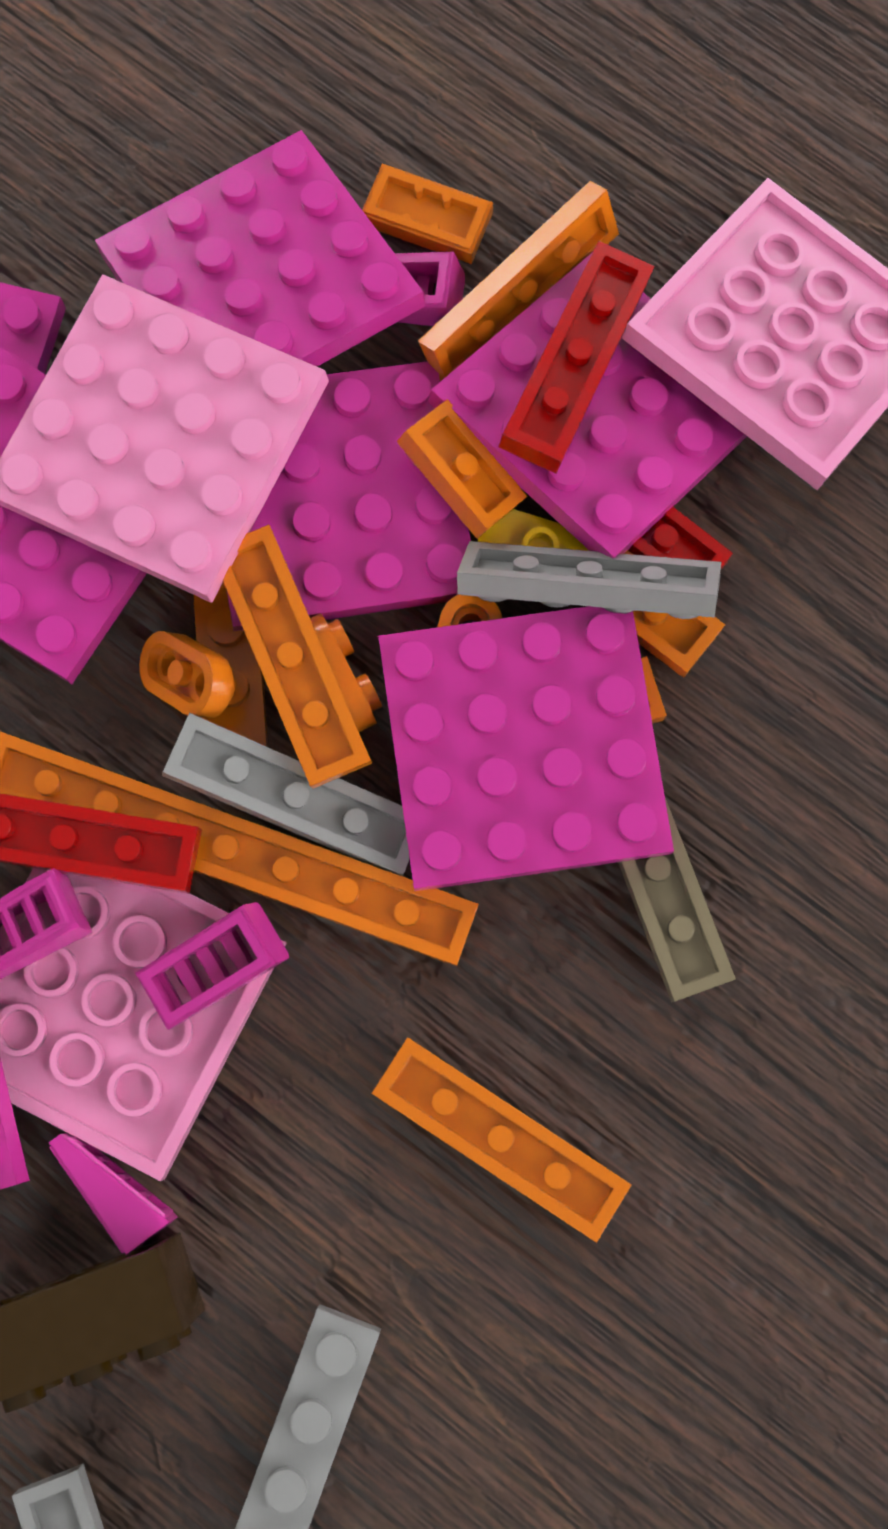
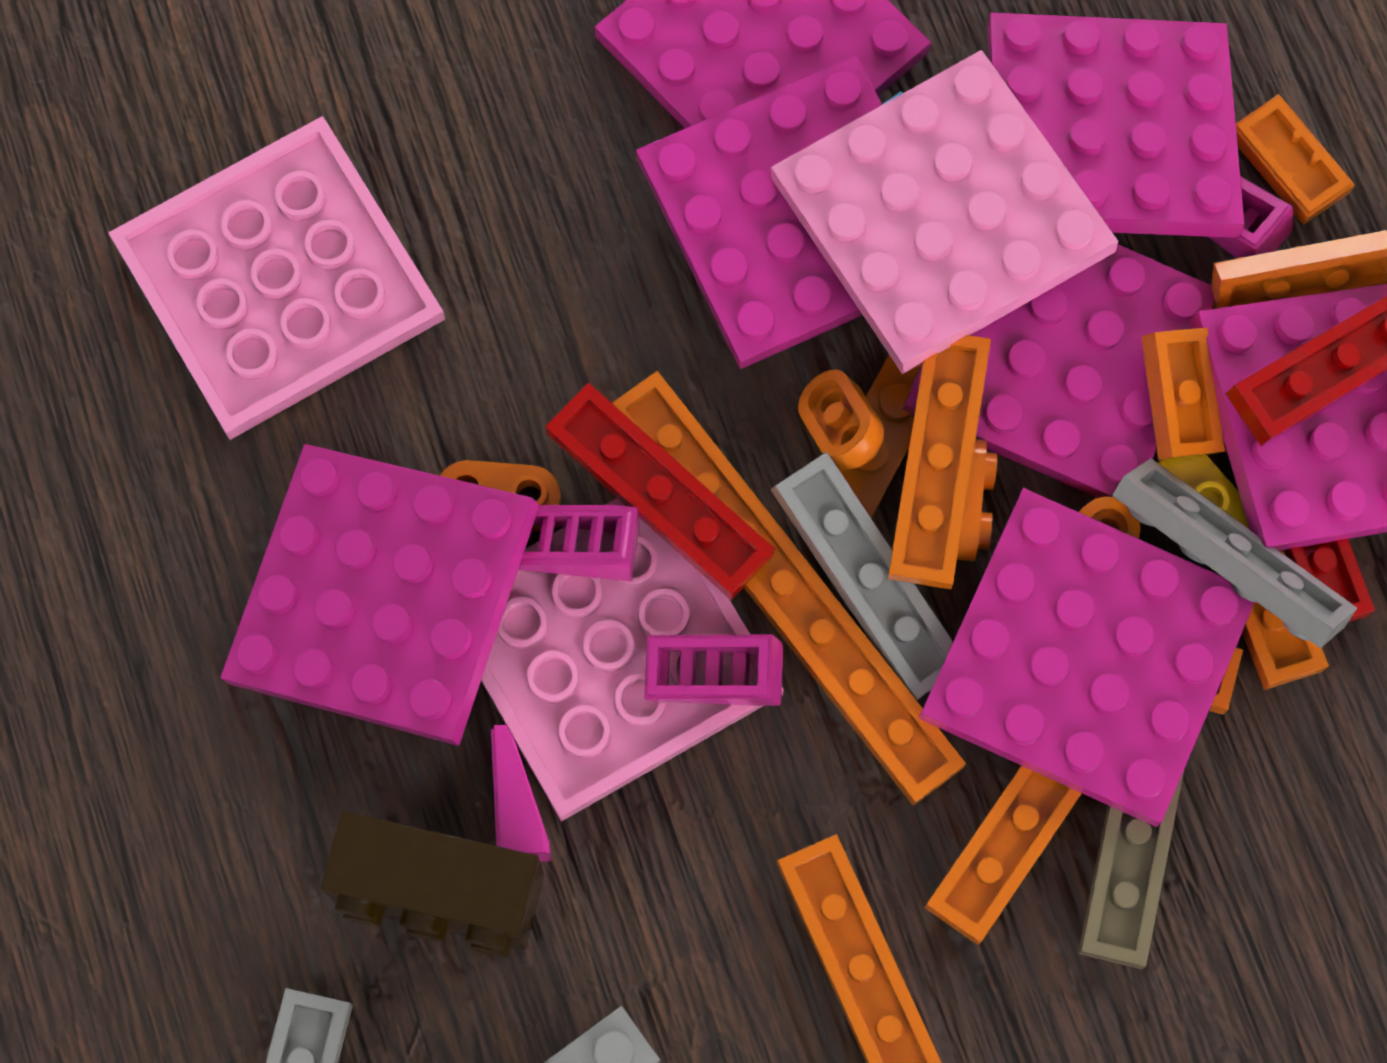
camera: 30 degrees right, 5 degrees down
(556, 960) = (1001, 853): none -> orange plate

